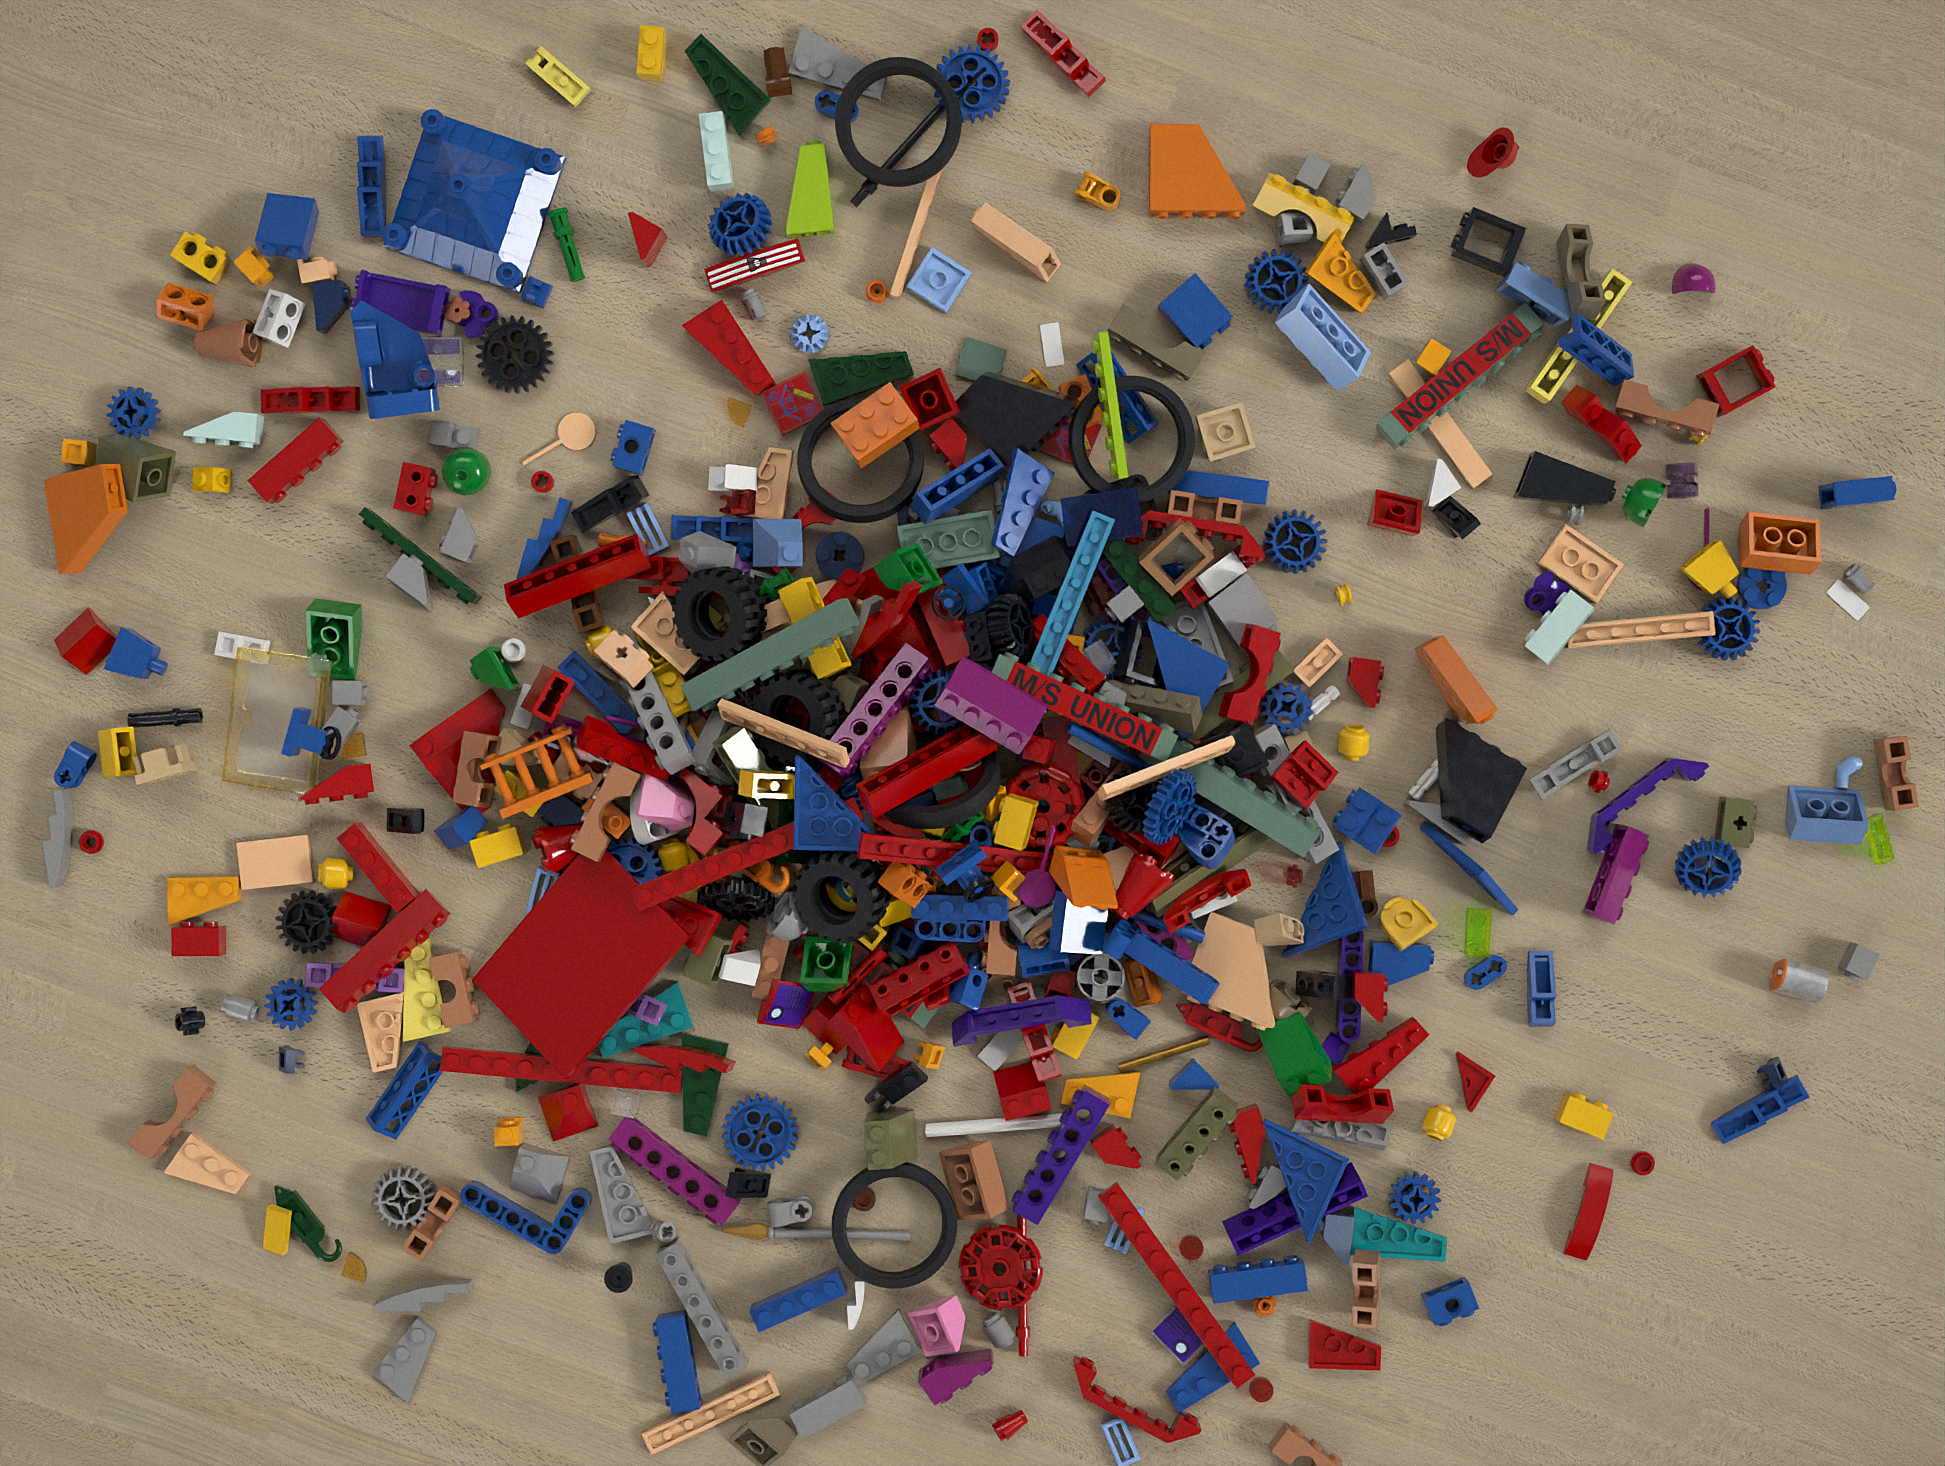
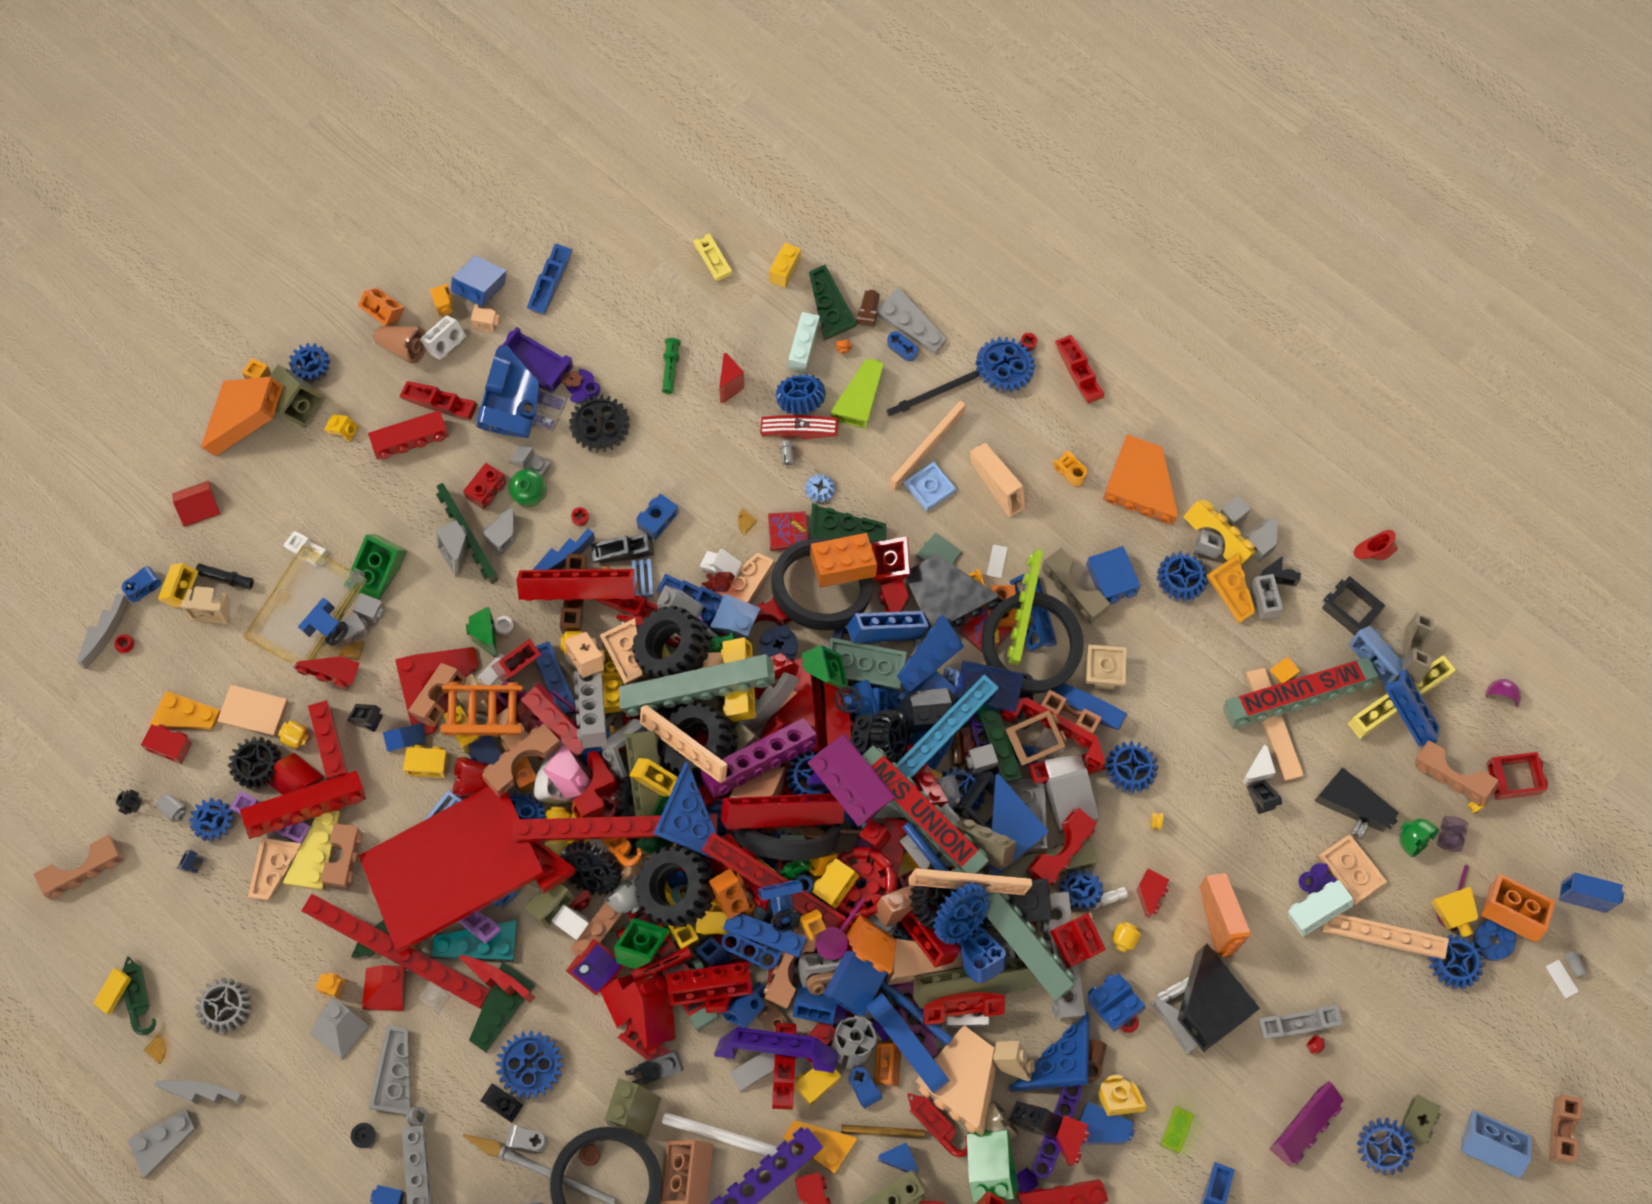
camera: 20 degrees right, 20 degrees down
(135, 656) = (224, 525): blue torso -> none
(199, 260) = (405, 282): yellow brick -> none
(207, 1166) = (83, 921): light nougat wing -> none
(233, 427) = (373, 397): light aqua slope -> none
(329, 303) = (483, 342): dark blue slope -> none
(402, 1089) = (260, 920): blue fence -> none
(427, 1233) = (226, 1042): nougat arch -> none
(474, 201) = (616, 315): blue piece -> none
(527, 1217) = (312, 1062): blue beam -> none
(536, 292) = (634, 389): blue tile -> none
(574, 431) = (618, 493): light nougat piece -> none
(671, 1156) = (426, 1020): magenta brick -> none
(725, 340) = (757, 471): red wedge -> none
(744, 820) = (624, 800): black brick -> none
(819, 1056) = (603, 1022): light orange tile -> none
(868, 76) = (935, 330): black tyre -> none
(877, 285) = (881, 472): orange plate -> none
(883, 622) = (789, 697): red slope -> none
(931, 1055) = (693, 1055): light orange tile -> none
(1021, 1091) = (754, 1115): red slope -> none
(1140, 885) = (916, 969): red cone -> none
(1294, 876) = (1041, 1025): clear red plate -> none
(1317, 662) = (1118, 865): light nougat plate -> none
(1323, 338) = (1204, 626): light blue slope -> none
(1395, 513) = (1217, 777): red slope -> none
(1470, 867) = (1190, 1073): blue tile -> none
(1489, 976) = (1171, 1161): blue beam -> none
(1599, 837) = (1391, 1060): dark purple slope -> none
(1606, 425) = (1408, 773): red arch -> none
(1846, 768) = (1523, 1113): light blue arm -> none
(1879, 840) = (1536, 1181): clear neon green plate -> none

